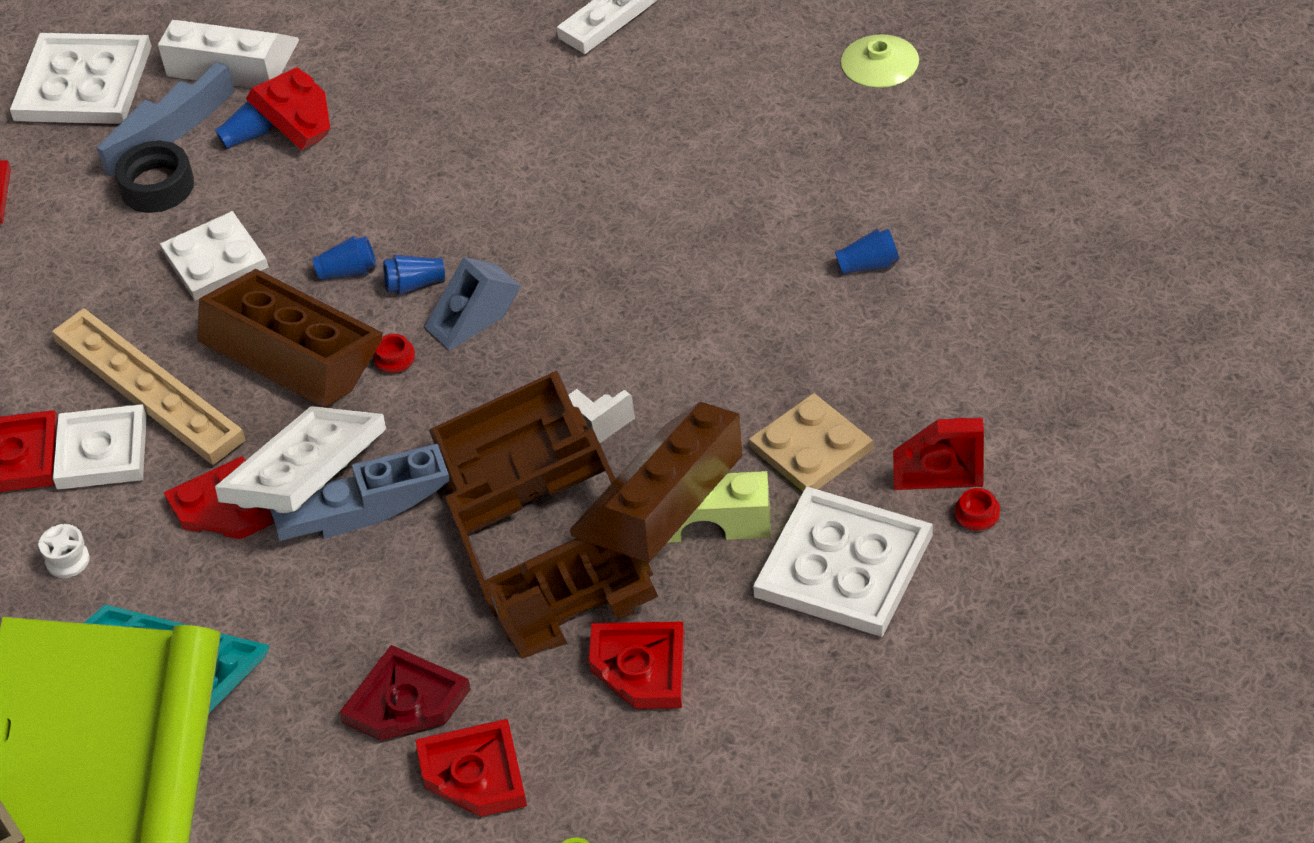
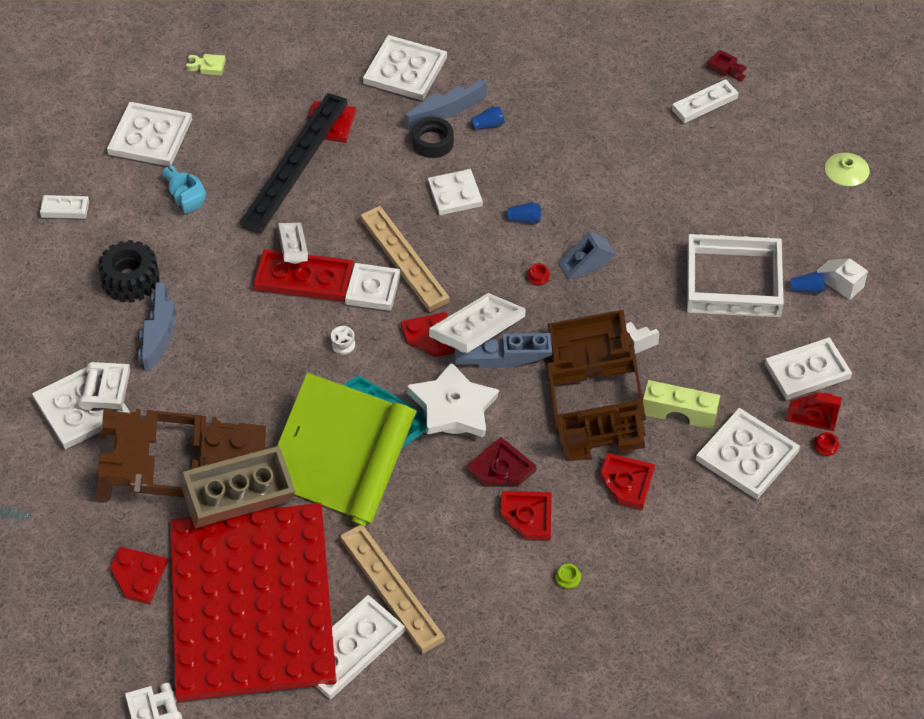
camera: 10 degrees right, 5 degrees up
(251, 55) = (500, 77): white slope -> none
(287, 336) = (484, 250): reddish brown slope -> none
(290, 608) = (453, 403): none -> white plate
(293, 106) = (517, 115): red plate -> none
(411, 273) = (559, 230): blue cone -> none
(664, 483) = (663, 388): reddish brown slope -> none
(750, 316) = (733, 303): none -> white window
(811, 443) = (748, 383): tan plate -> none
(908, 392) = (808, 368): none -> white plate
(927, 227) = (844, 276): none -> white slope

